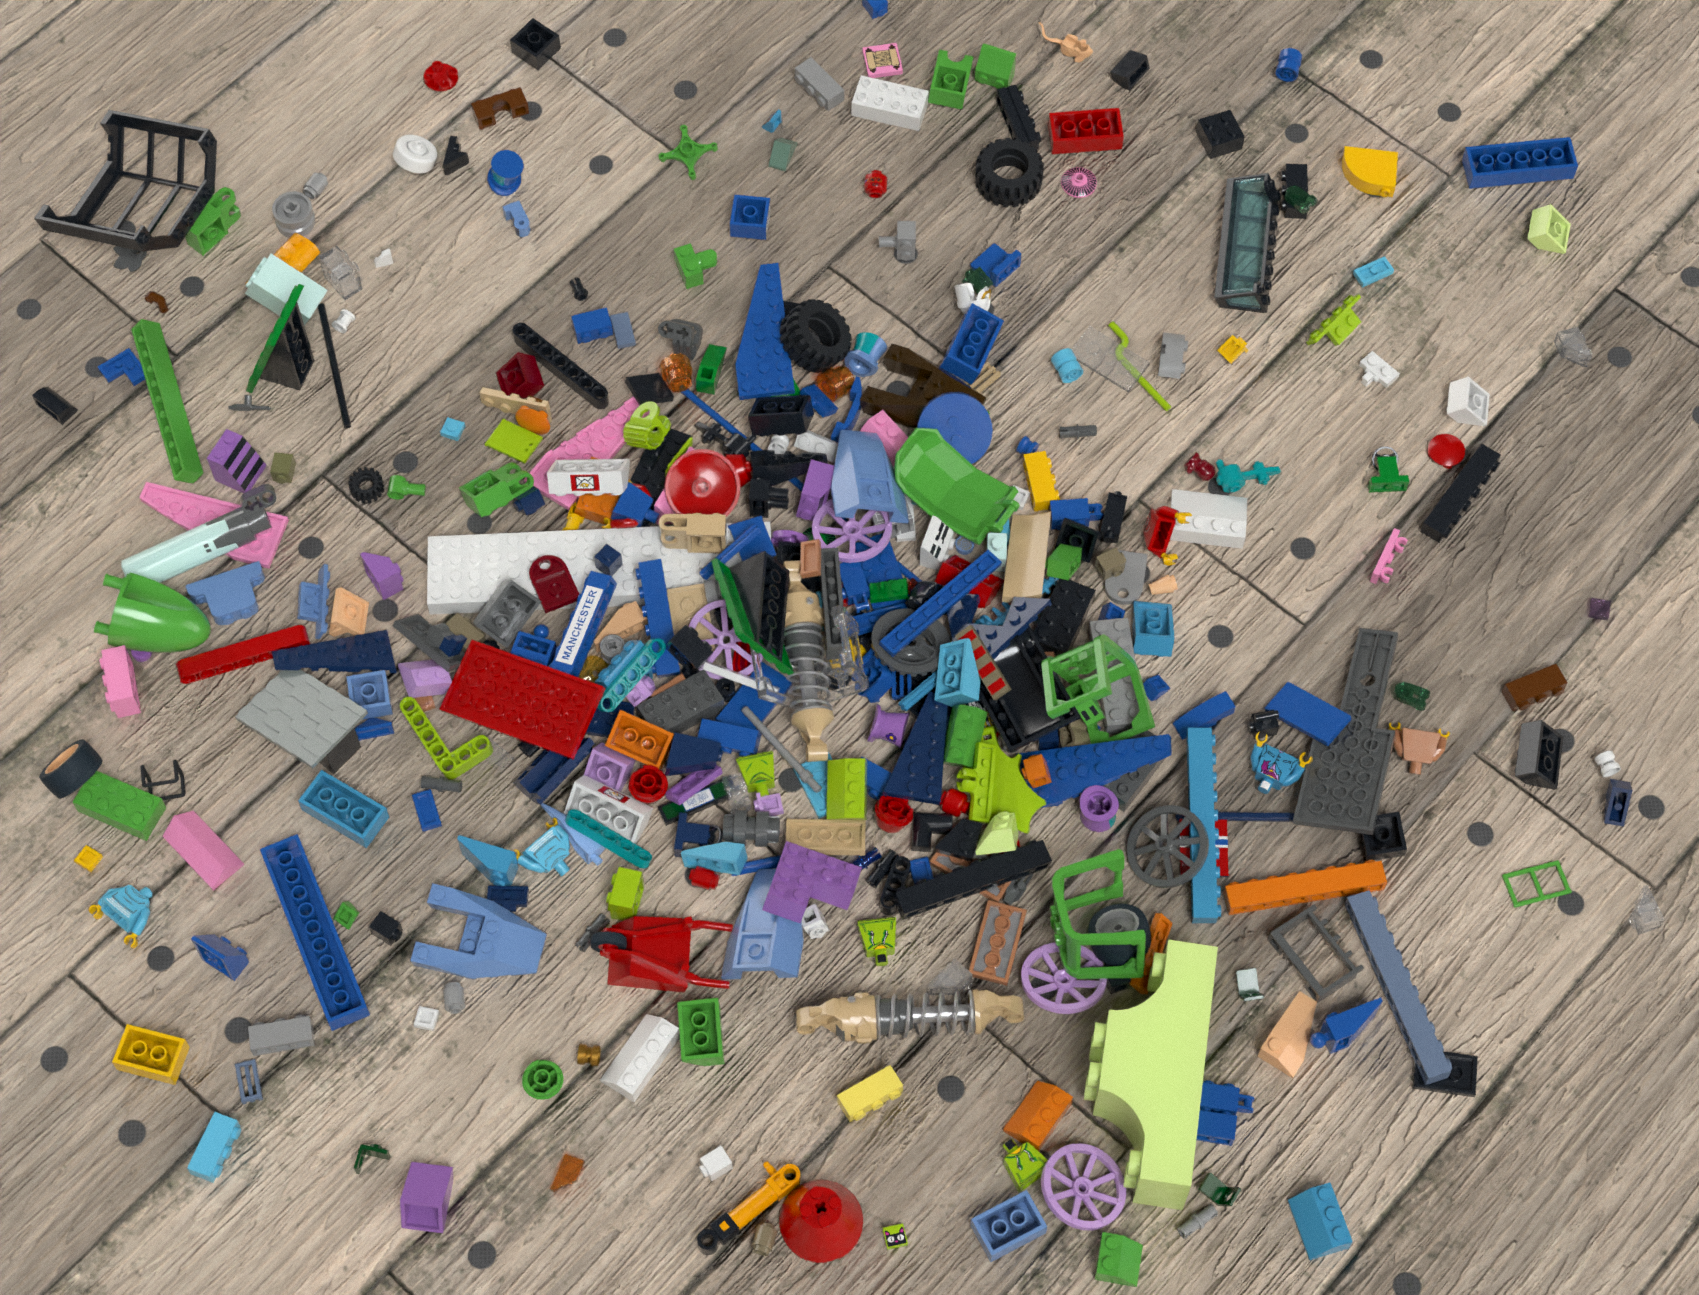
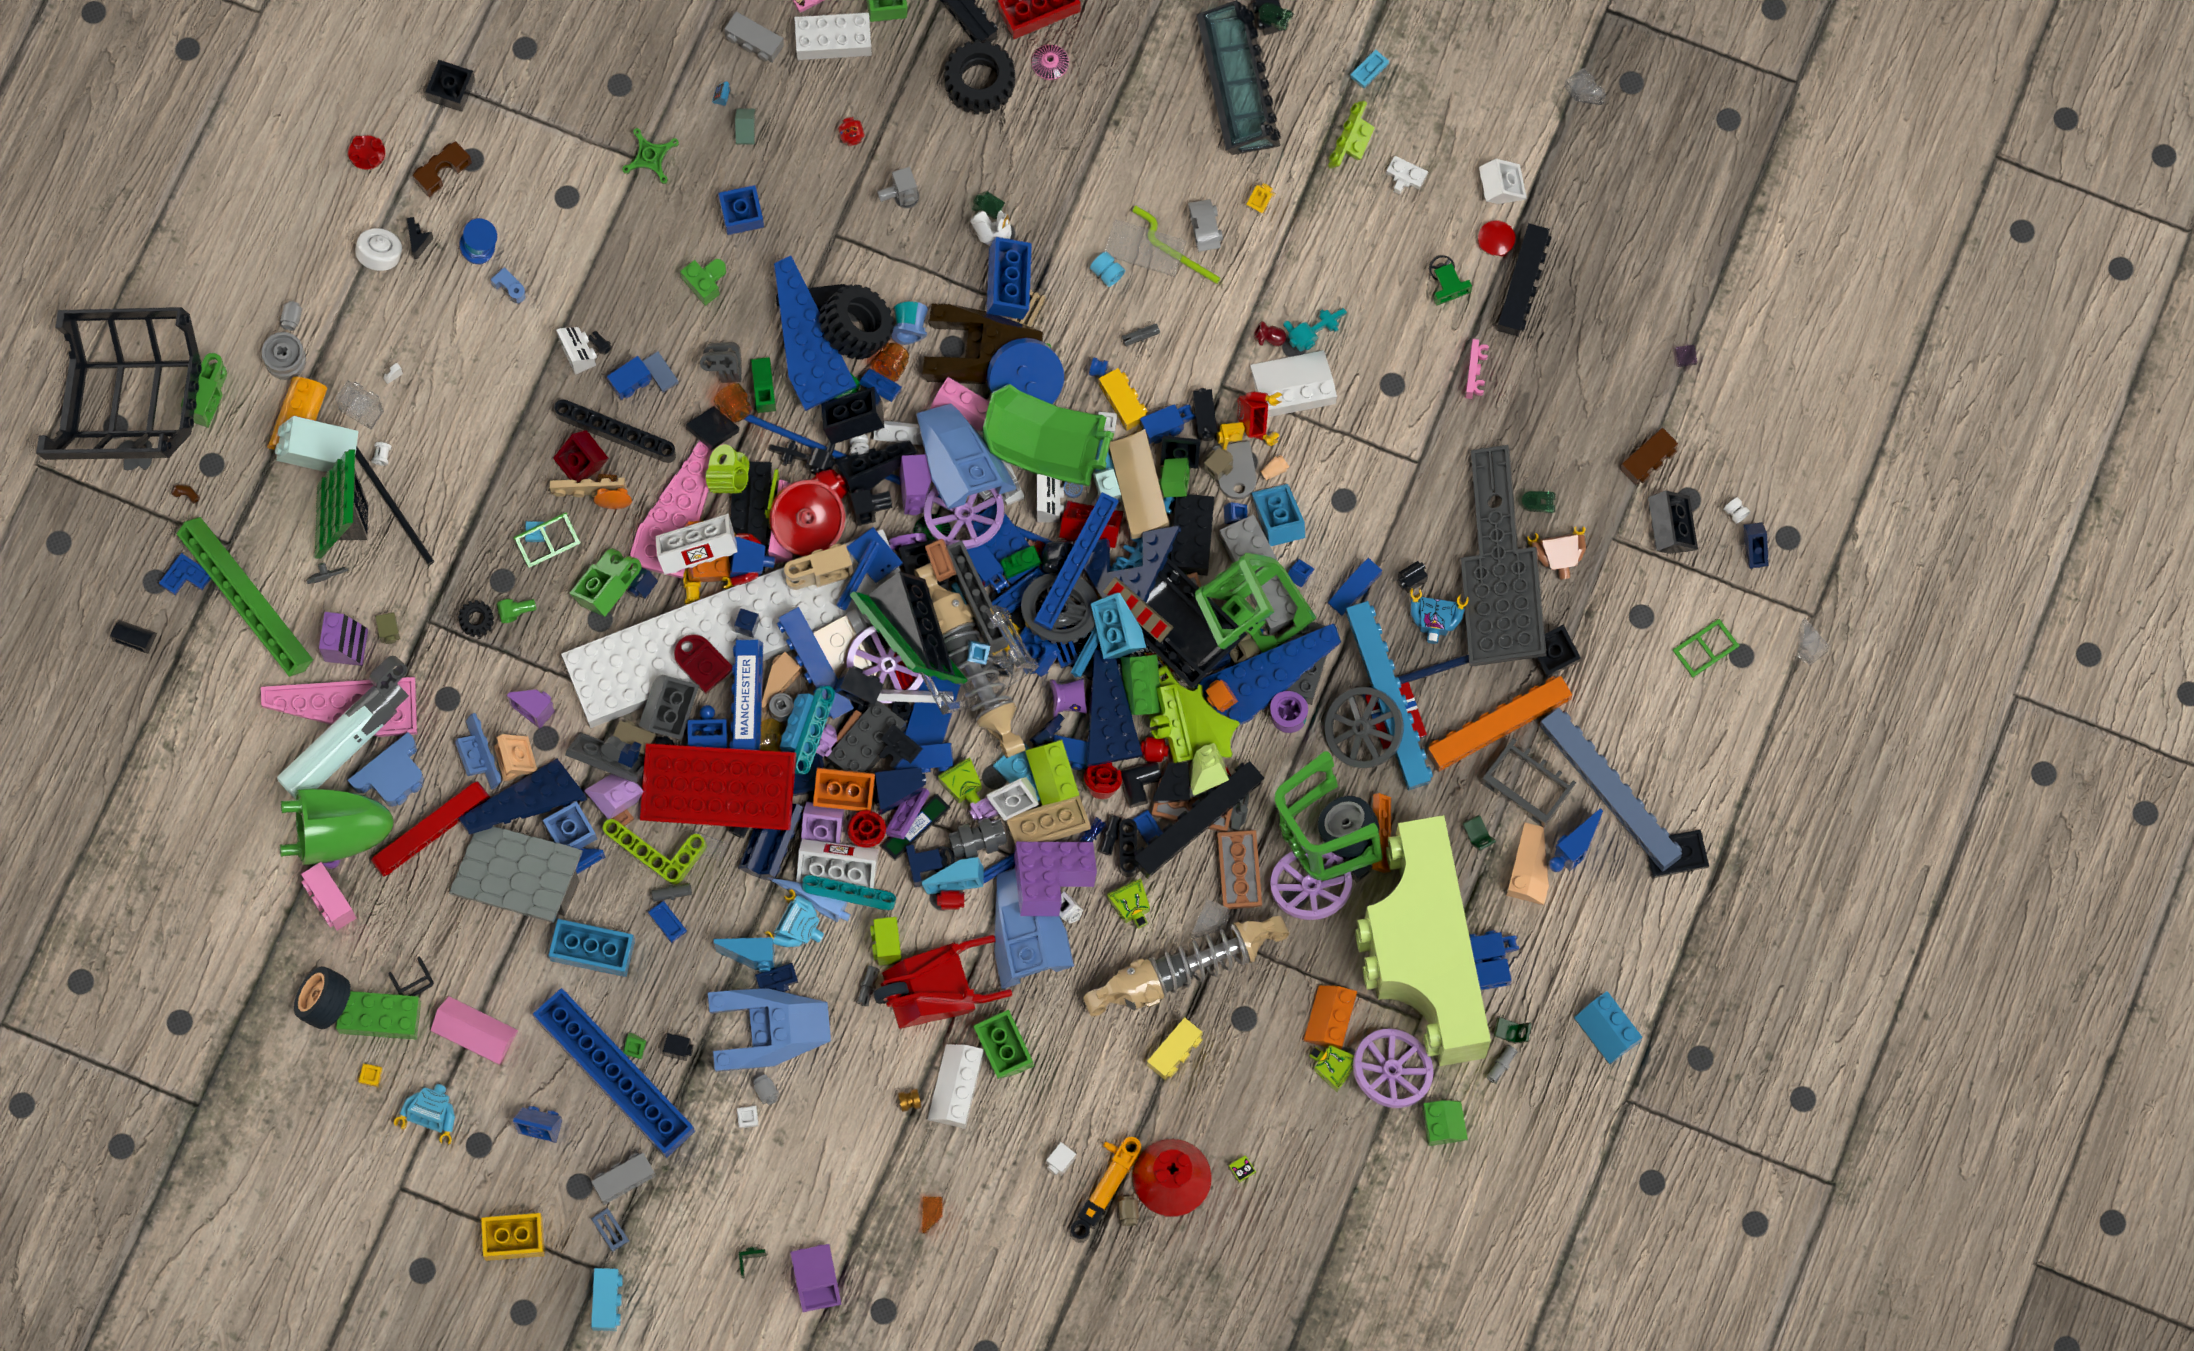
camera: 20 degrees left, 10 degrees up
(460, 452) = (553, 553): none -> window
(513, 441) = (600, 524): lime container -> none
(542, 1079) = (878, 1137): bright green cone -> none
(554, 286) = (576, 349): none -> white slope
(708, 717) = (899, 746): none -> black plate
(736, 793) = (950, 808): clear slope -> none
(799, 800) = (1014, 798): none -> white slope
(805, 775) = (1007, 770): light grey bar -> none
(813, 651) = (978, 652): none -> dark azure slope
(855, 396) = (915, 367): blue slope -> none
(858, 750) = (1047, 731): none -> dark blue hinge
(997, 263) = (1000, 180): blue bracket -> none
(1008, 1226) = (1339, 1126): medium blue brick -> none
(1131, 540) = (1230, 432): none -> yellow bracket
(1308, 713) = (1450, 553): blue tile -> none

